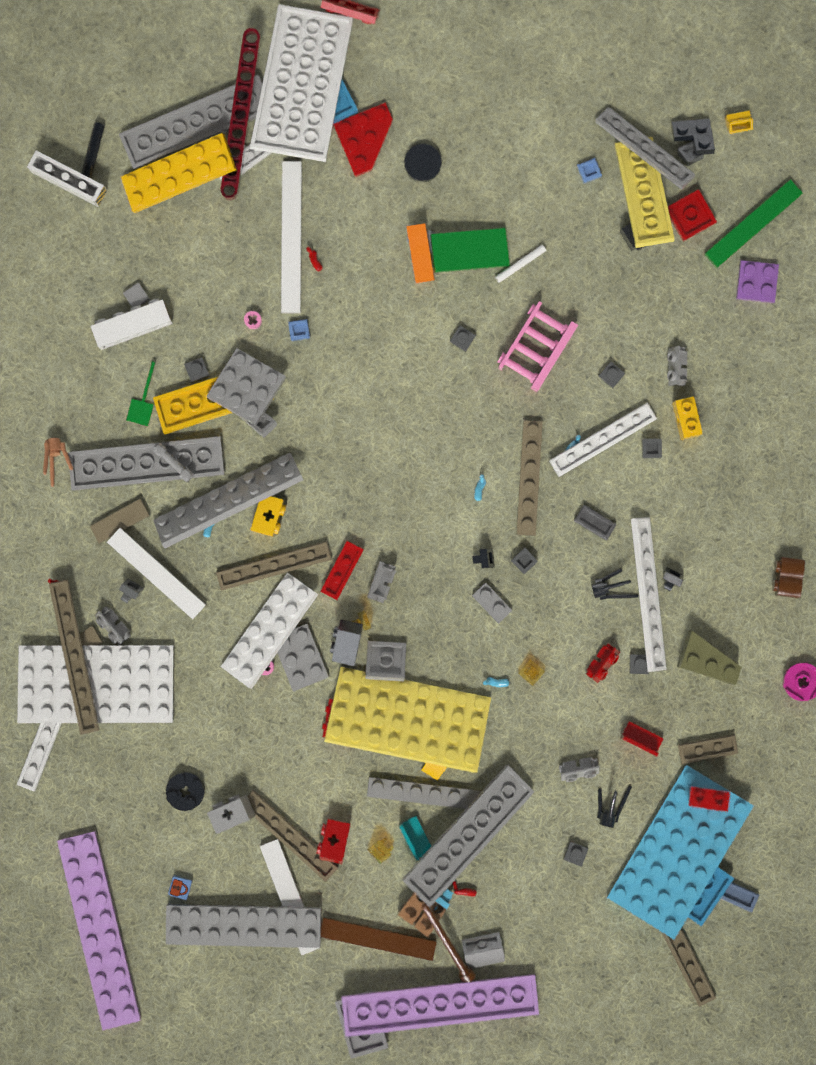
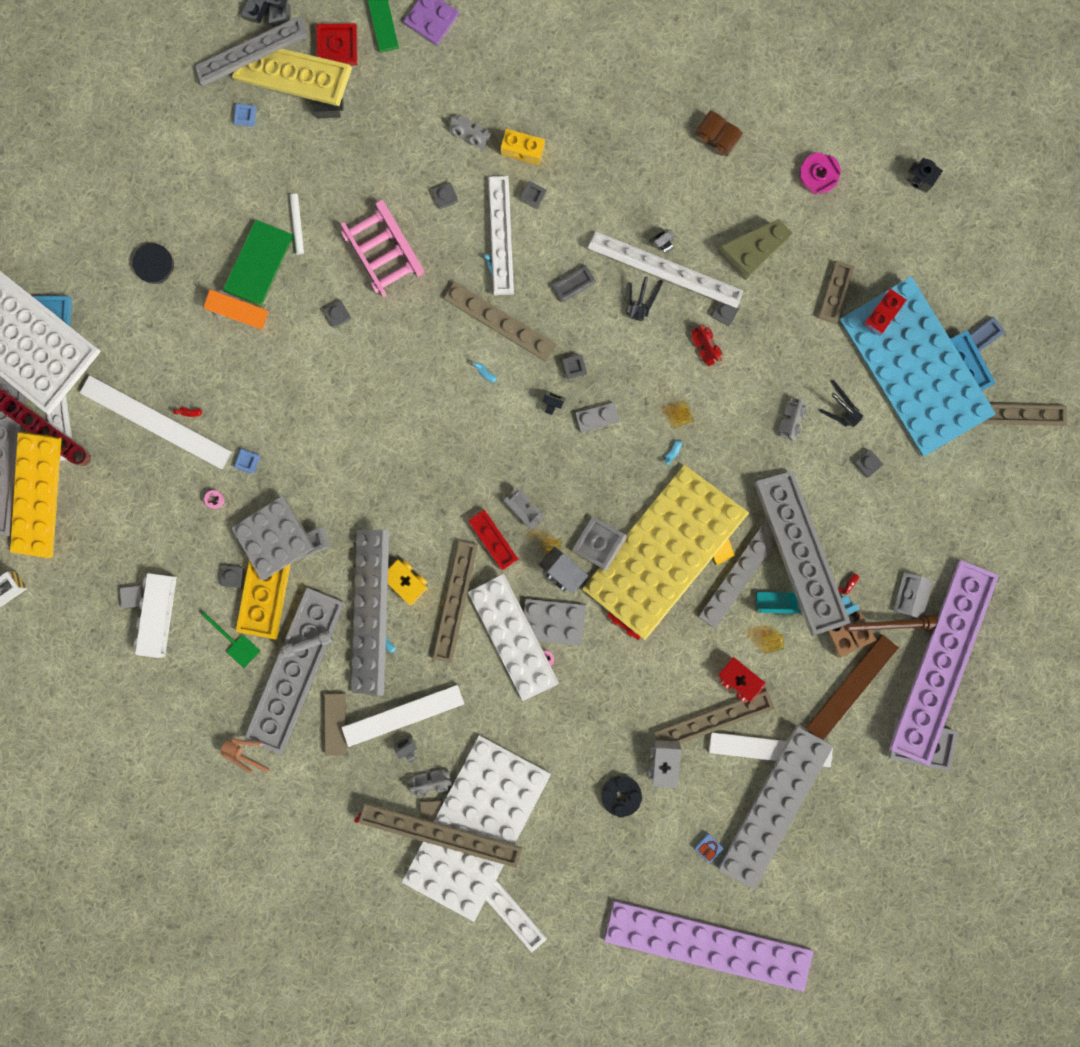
camera: 70 degrees left, 0 degrees up
(364, 137) = (99, 305): red plate -> none
(642, 738) = (794, 346): red panel -> none

